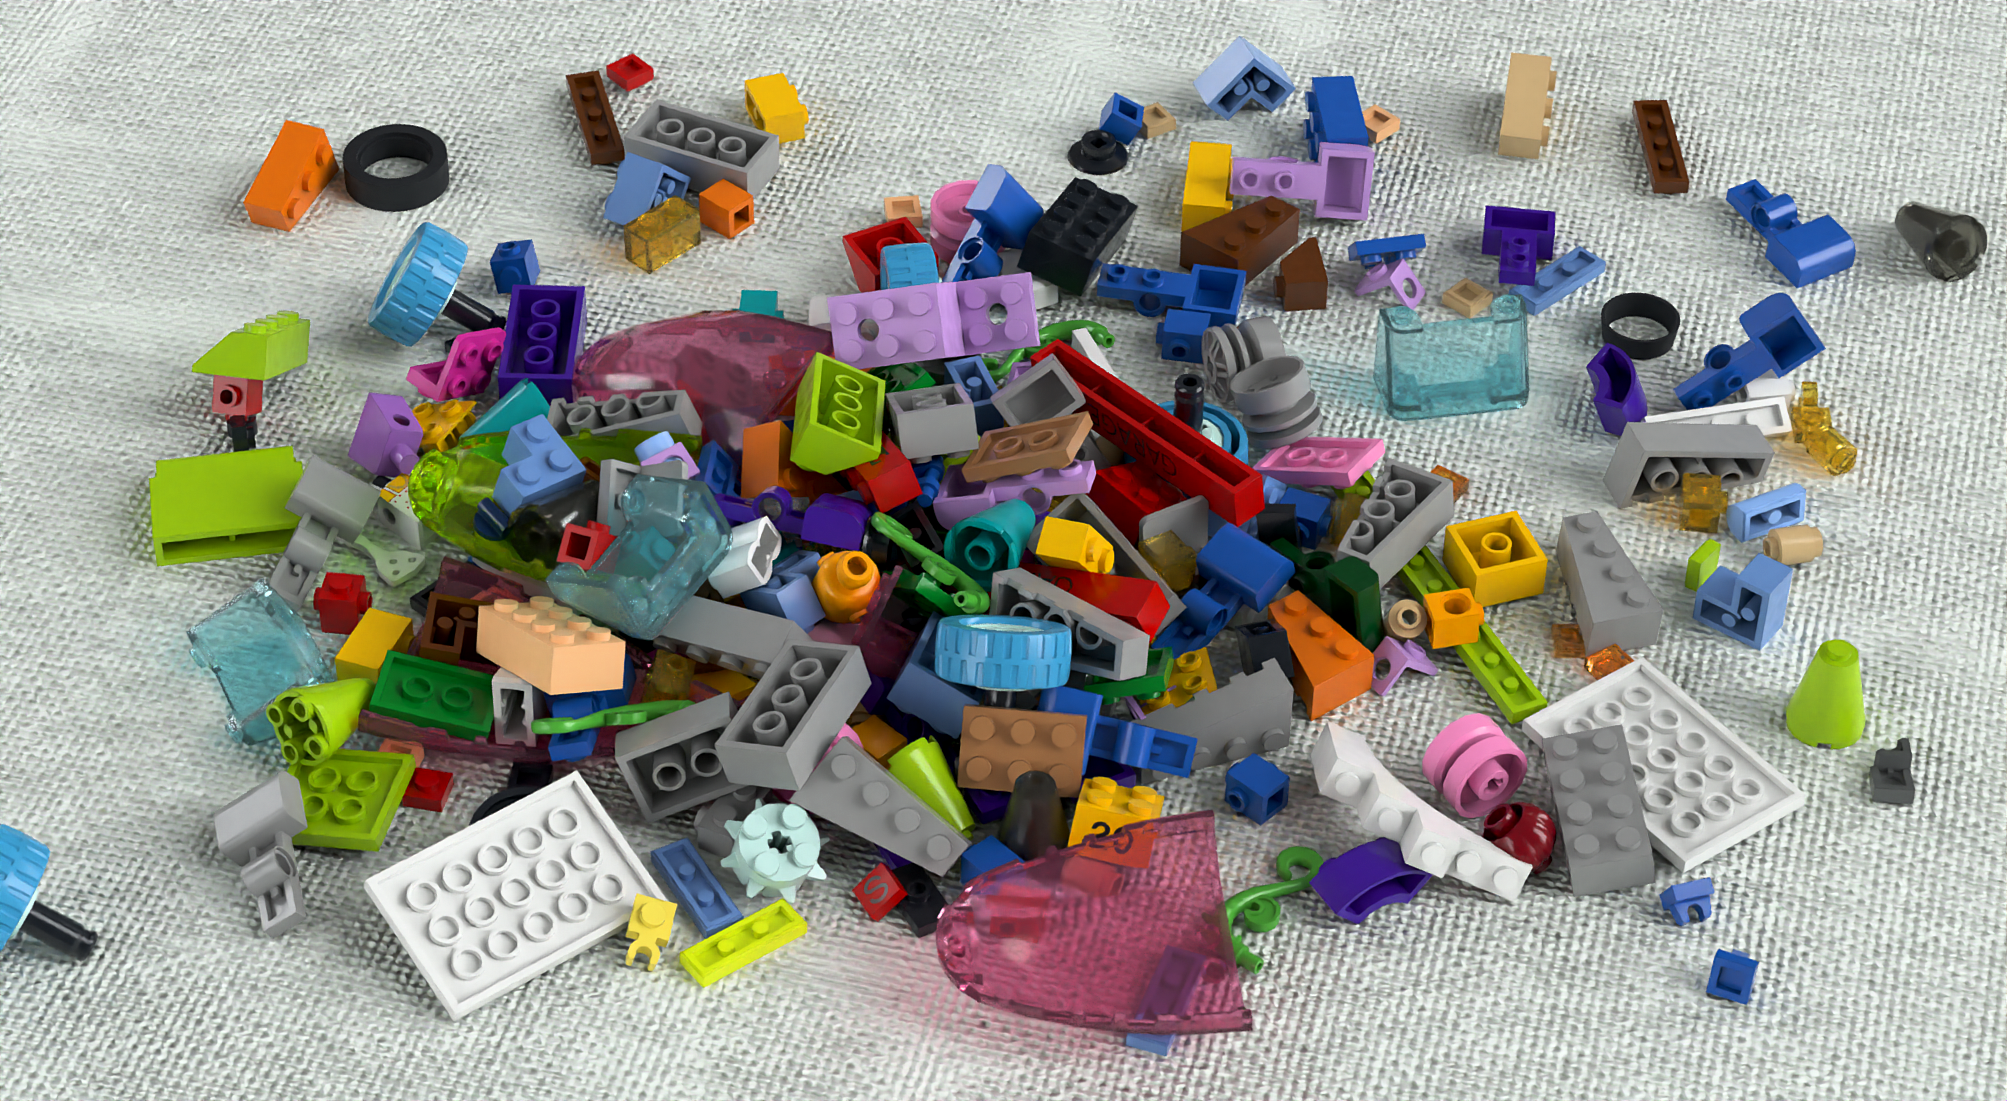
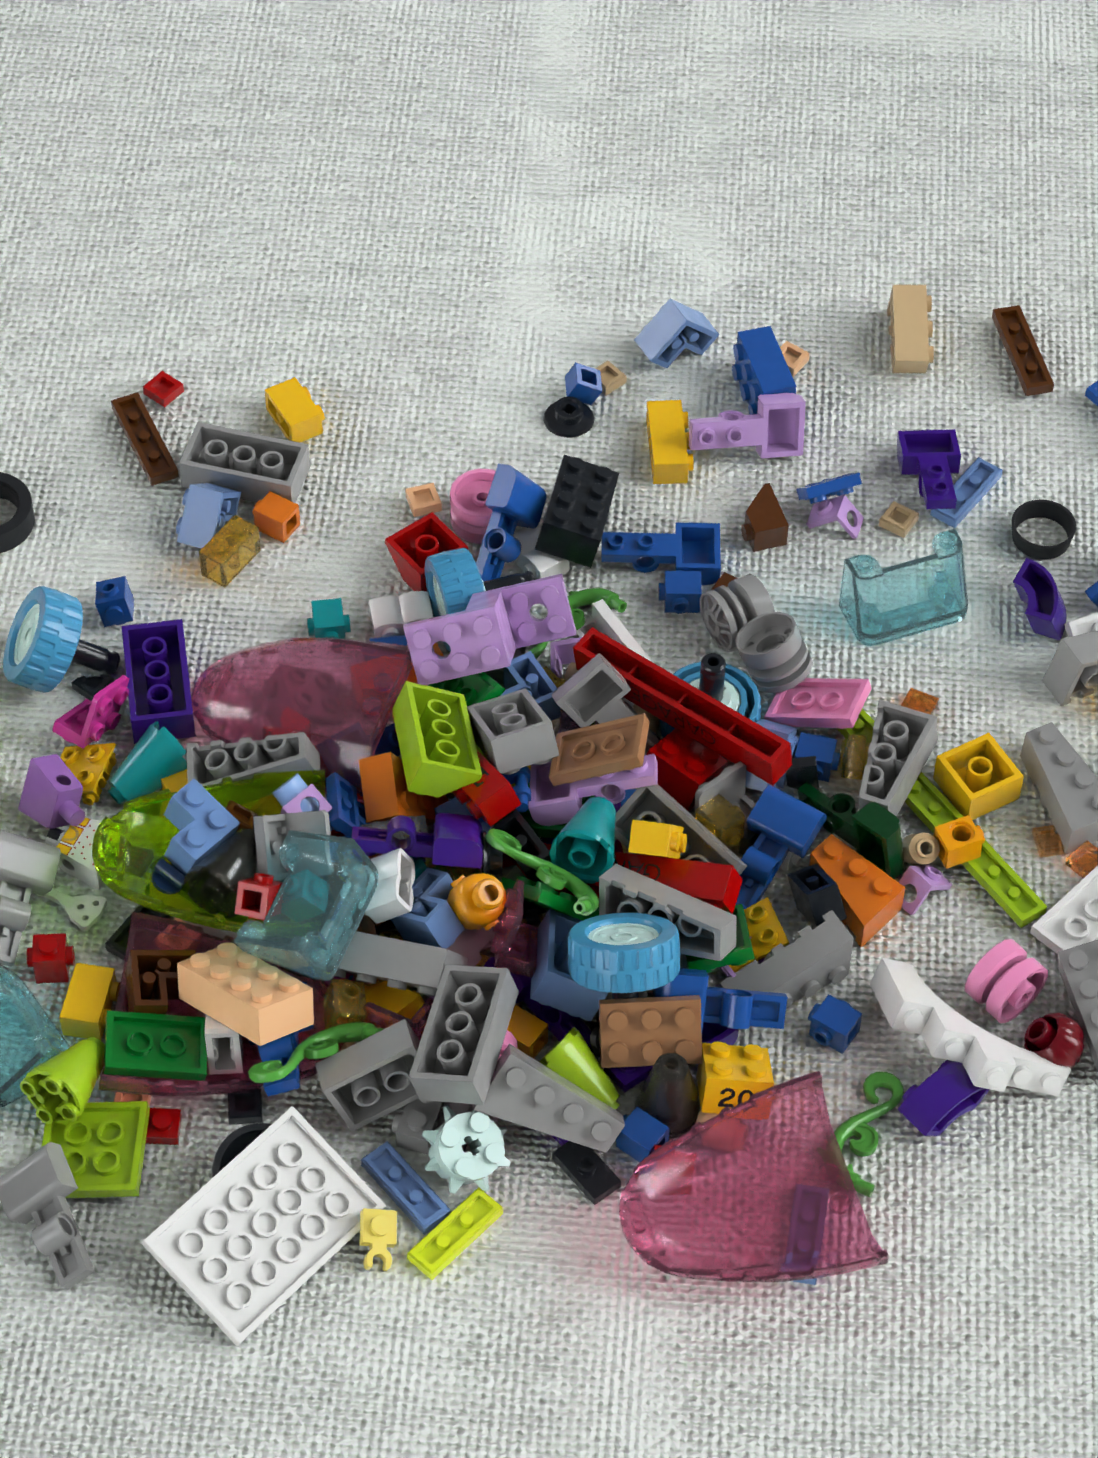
camera: 10 degrees left, 10 degrees up
(879, 891) = (556, 1169): red tile -> none
(1243, 238) = (708, 491): reddish brown wedge -> none

